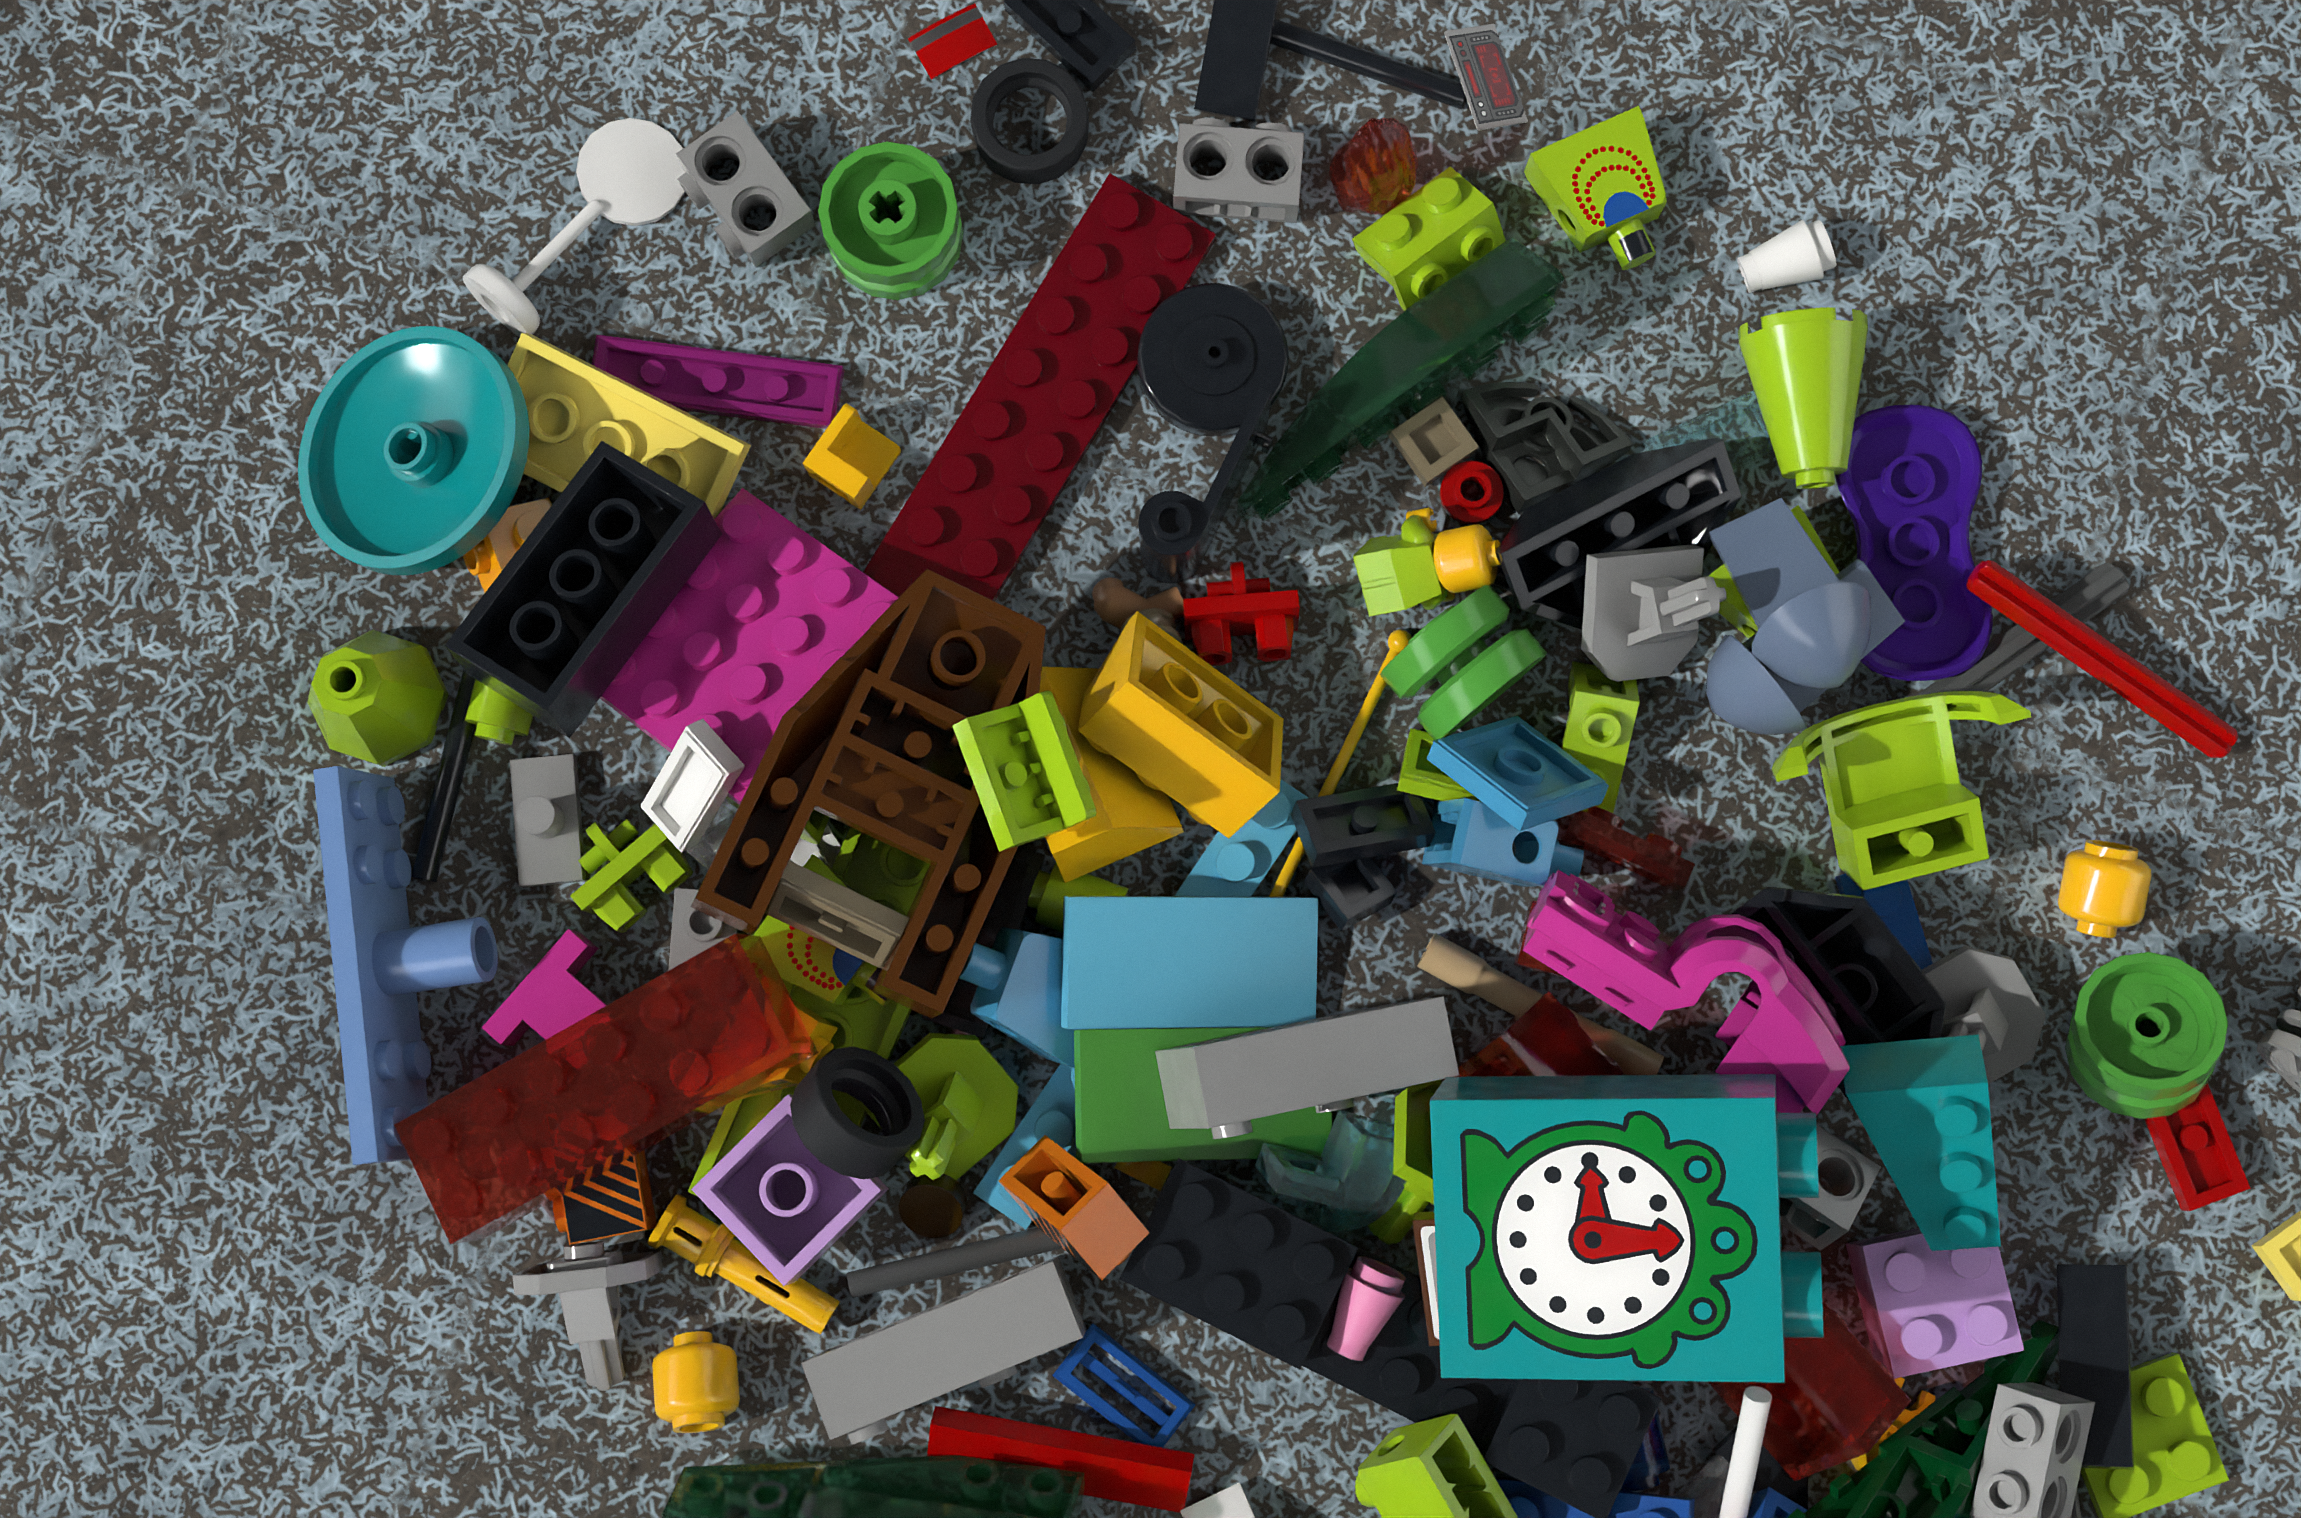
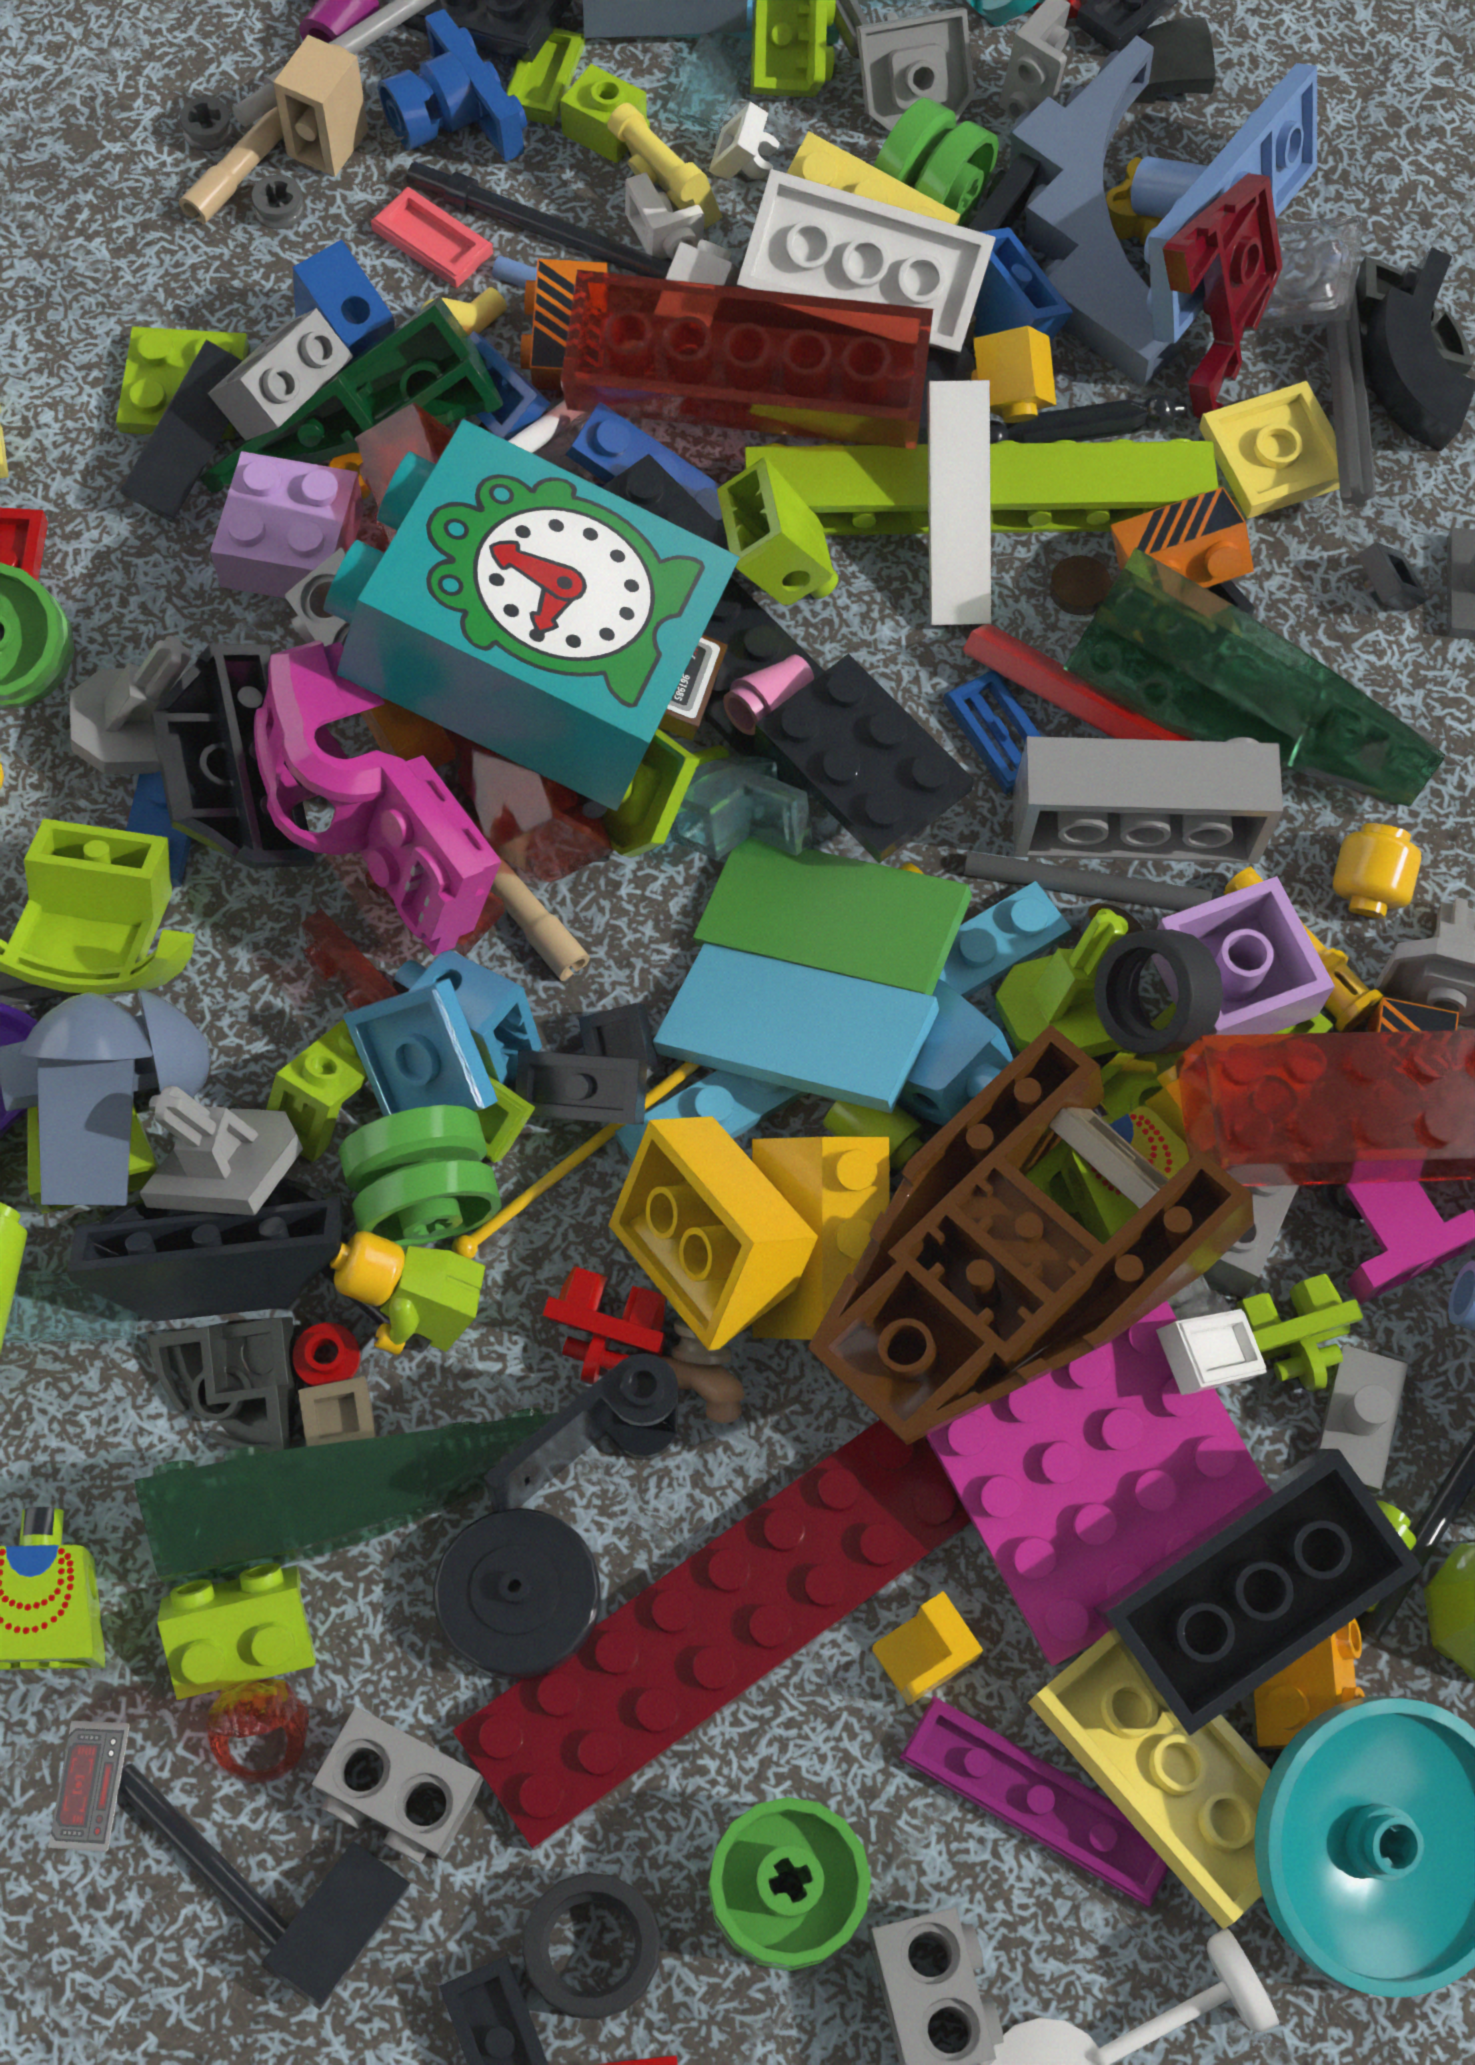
camera: 165 degrees left, 15 degrees down
(1025, 770) = (888, 1200): lime bracket -> none
(1074, 1207) = (991, 855): orange brick -> none
(1305, 1065) = (733, 883): light grey brick -> none
(1933, 1130) = (223, 608): teal wedge -> none

